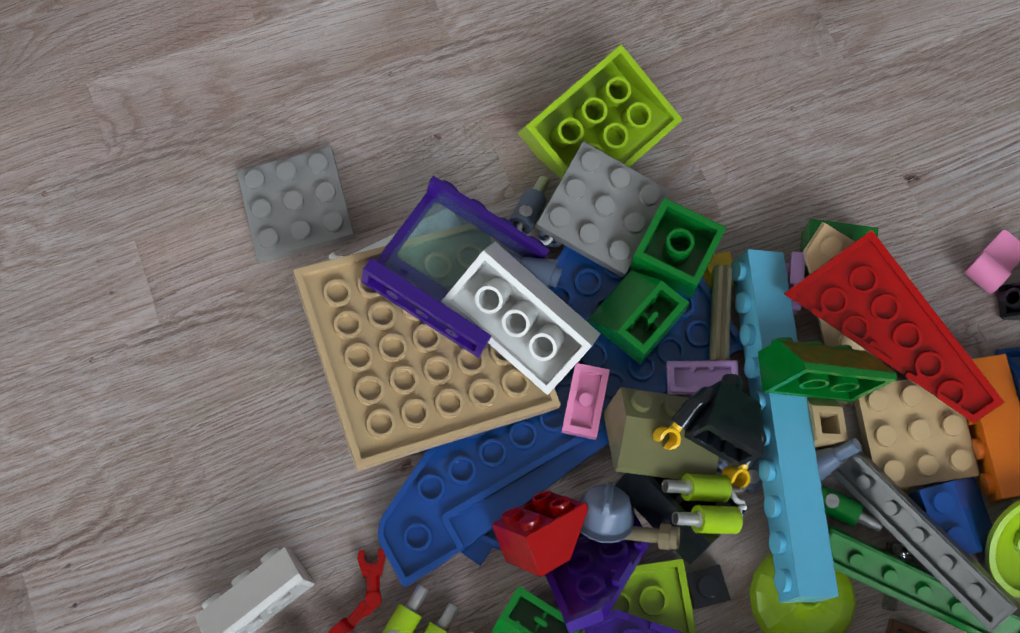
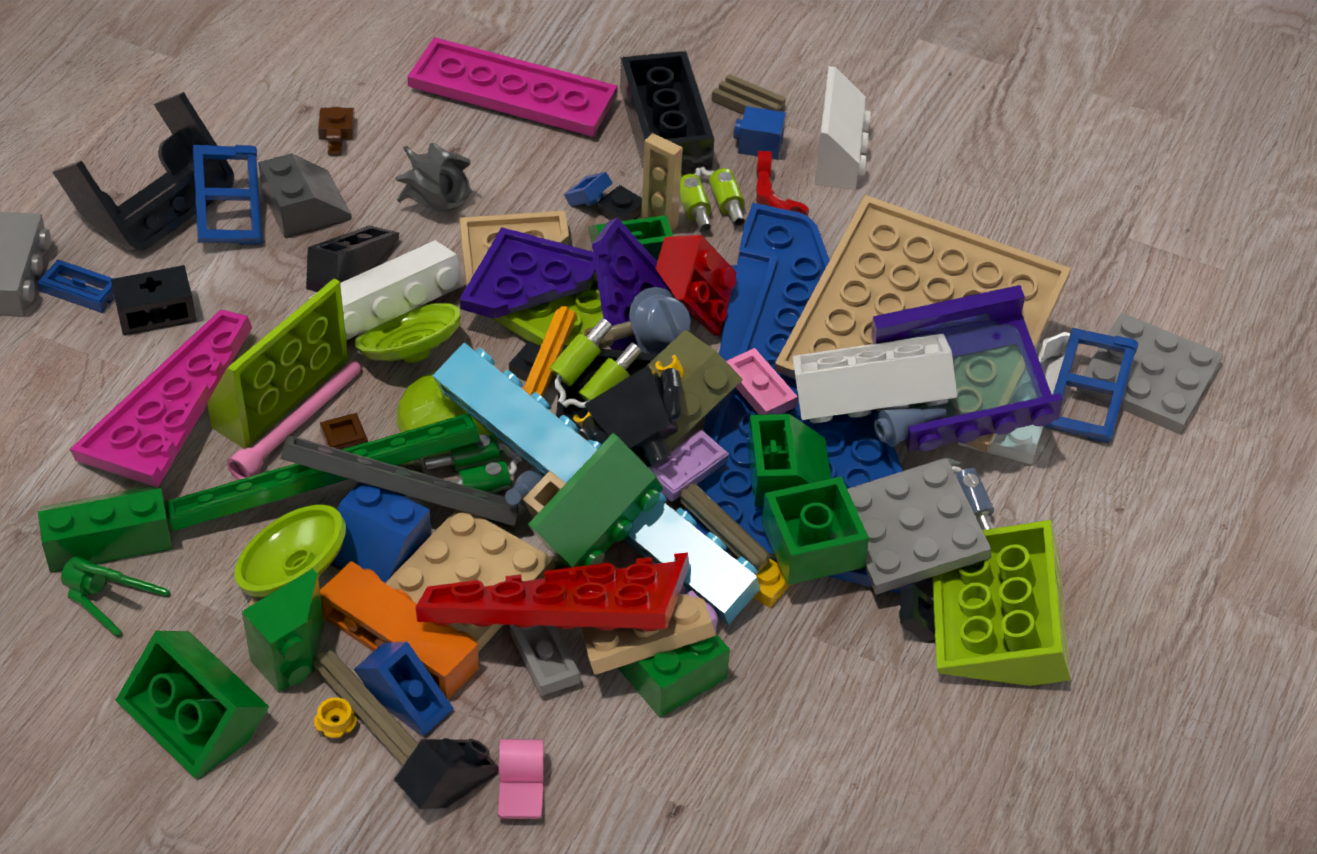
camera: 130 degrees right, 25 degrees down
(363, 239) = (1119, 344): none -> blue window
(654, 163) = (917, 613): none -> black plate
(713, 564) = (550, 350): none -> light orange axle

